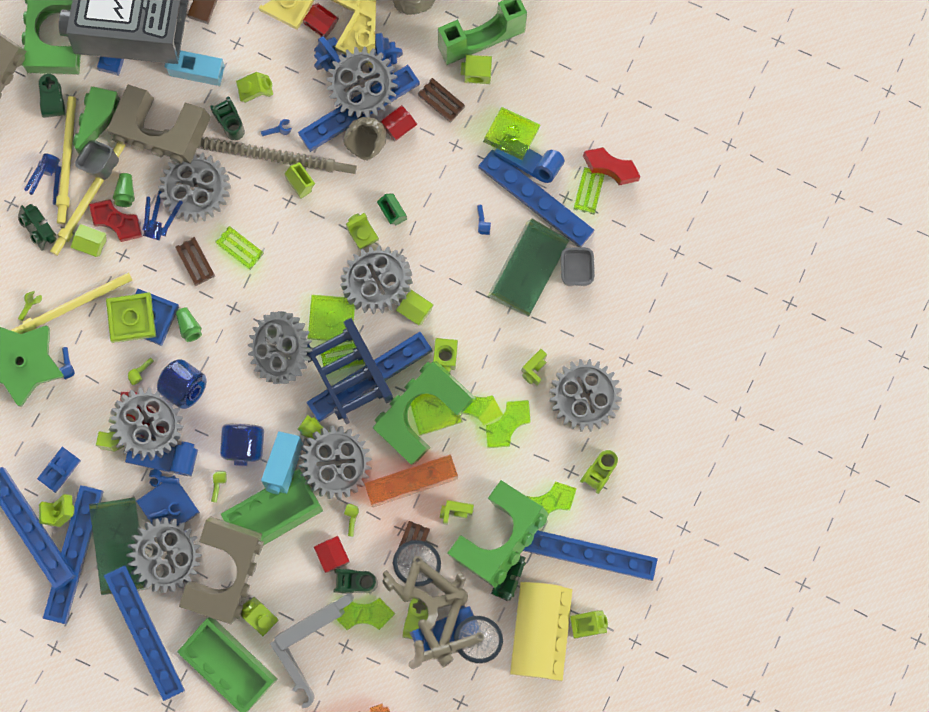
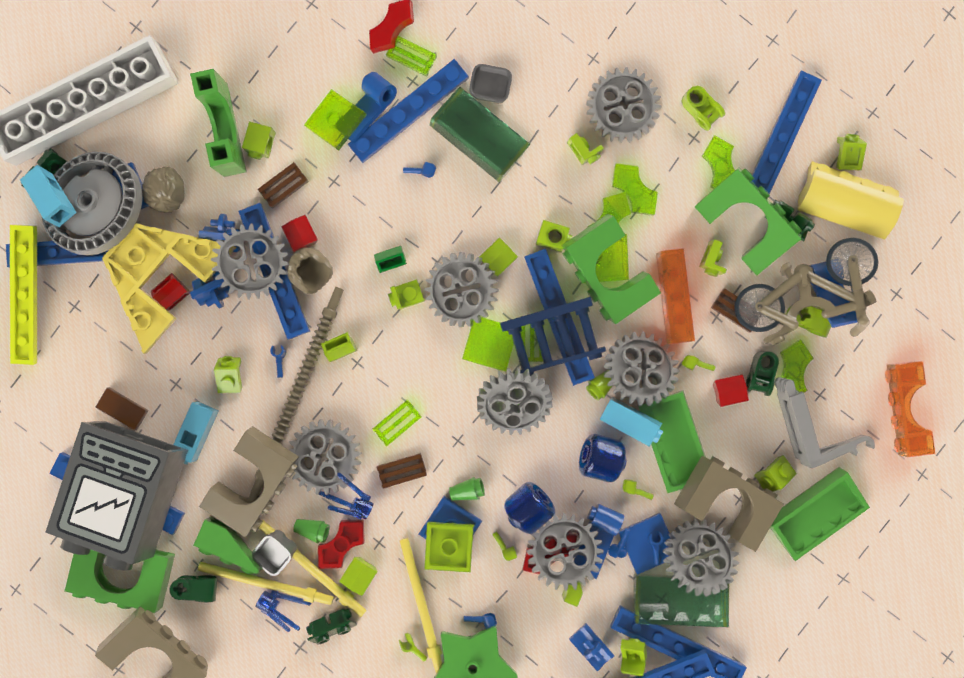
camera: 70 degrees left, 10 degrees up
(144, 632) = (773, 591): blue plate -> none
(227, 116) = (253, 408): dark green piece -> none

